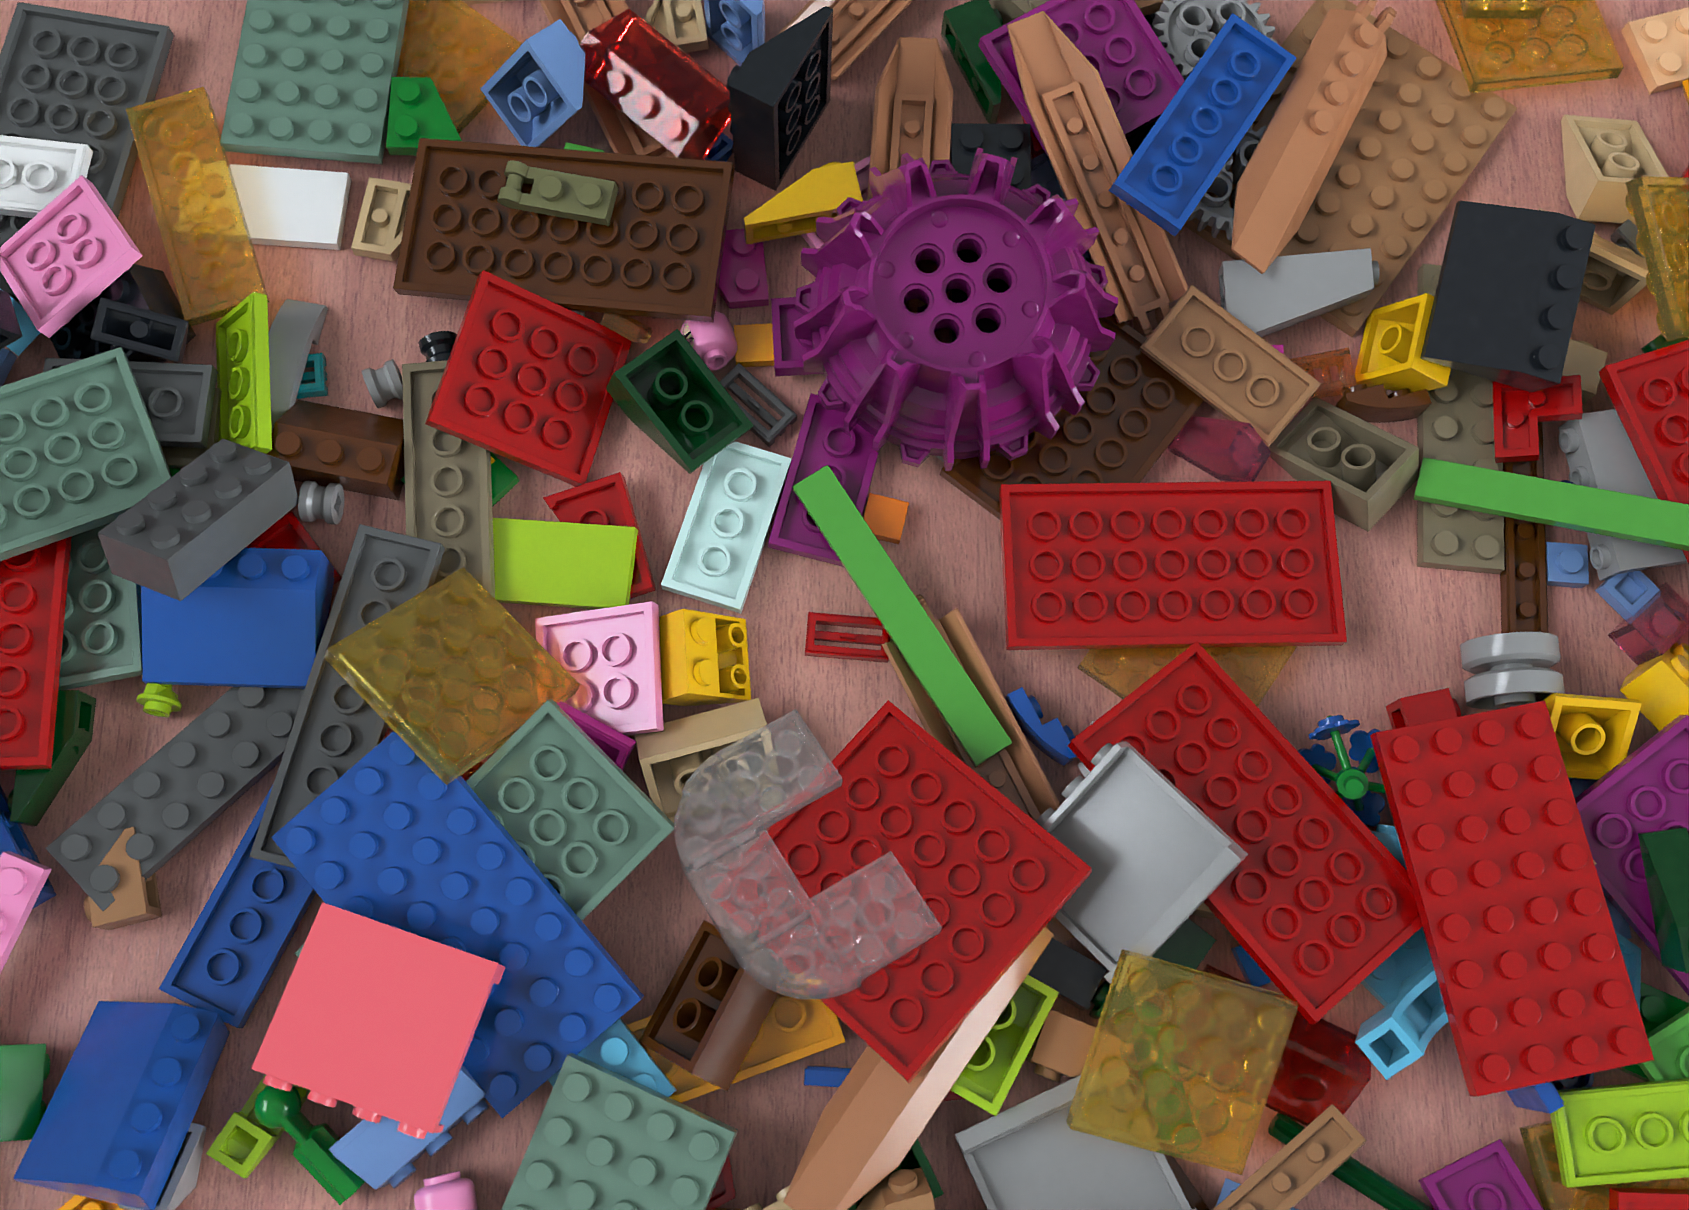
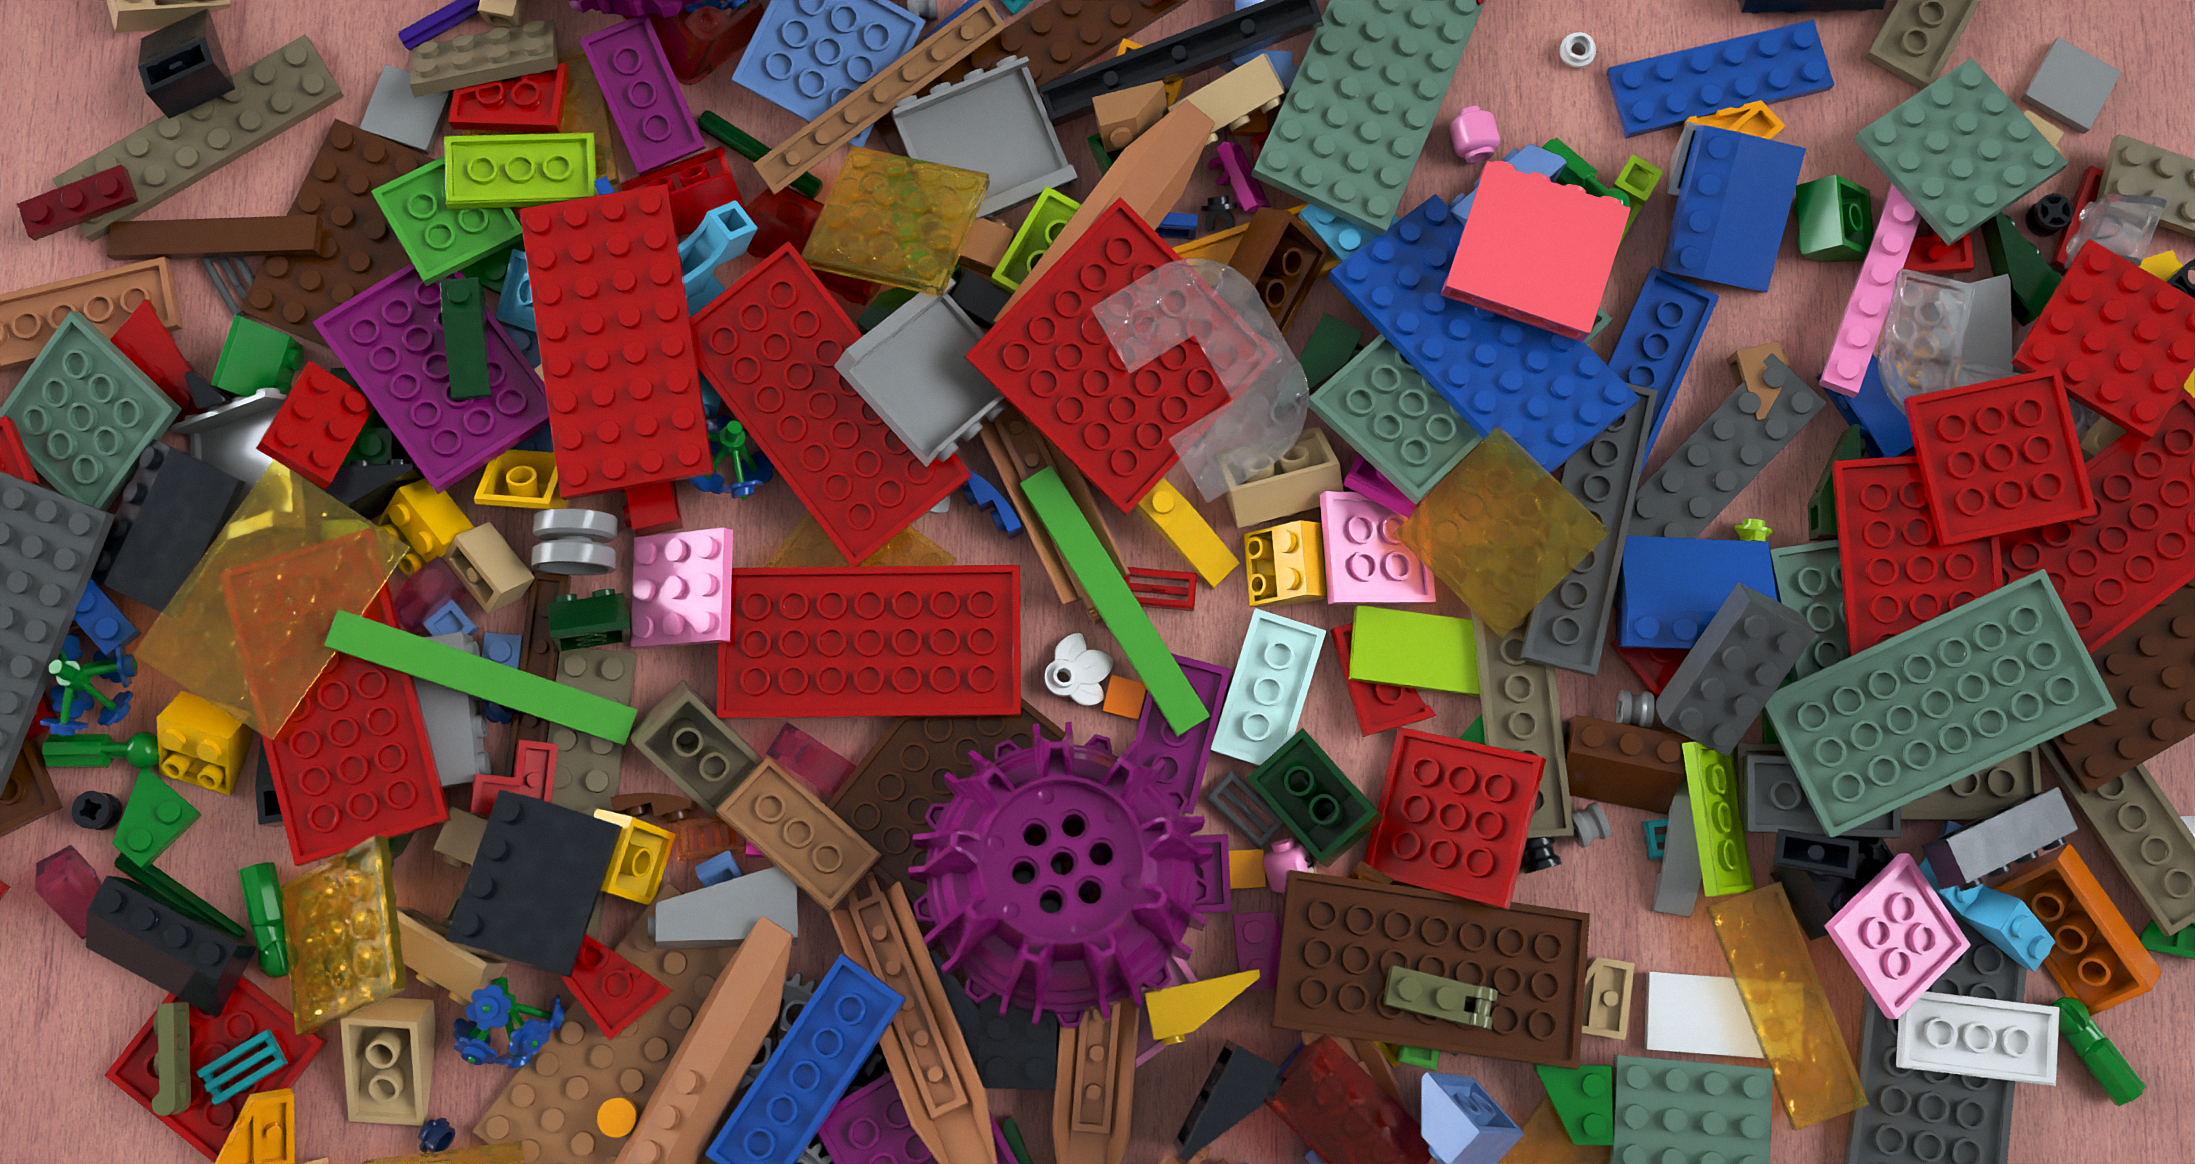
camera: 175 degrees left, 5 degrees up
(648, 909) = (1329, 350): none -> dark green slope
(749, 1150) = (1237, 172): none -> dark pink plate
(772, 1103) = (1219, 206): none -> black plate
(815, 694) = (1186, 532): none -> yellow slope
(930, 546) = (1083, 668): none -> white plate
(1304, 337) = (718, 869): none -> medium blue plate
(1380, 110) = (617, 1117): none -> light orange tile
(1383, 623) = (682, 588): none -> bright pink plate
(1404, 223) = (612, 987): none -> red wing
(1430, 1119) = (695, 187): none -> red slope
(1486, 577) = (588, 621): none -> dark green slope
(1530, 184) = (498, 1009): none -> blue plant
(1551, 104) = (436, 1135): none -> dark blue plate
(1601, 649) = (488, 567): none -> tan brick

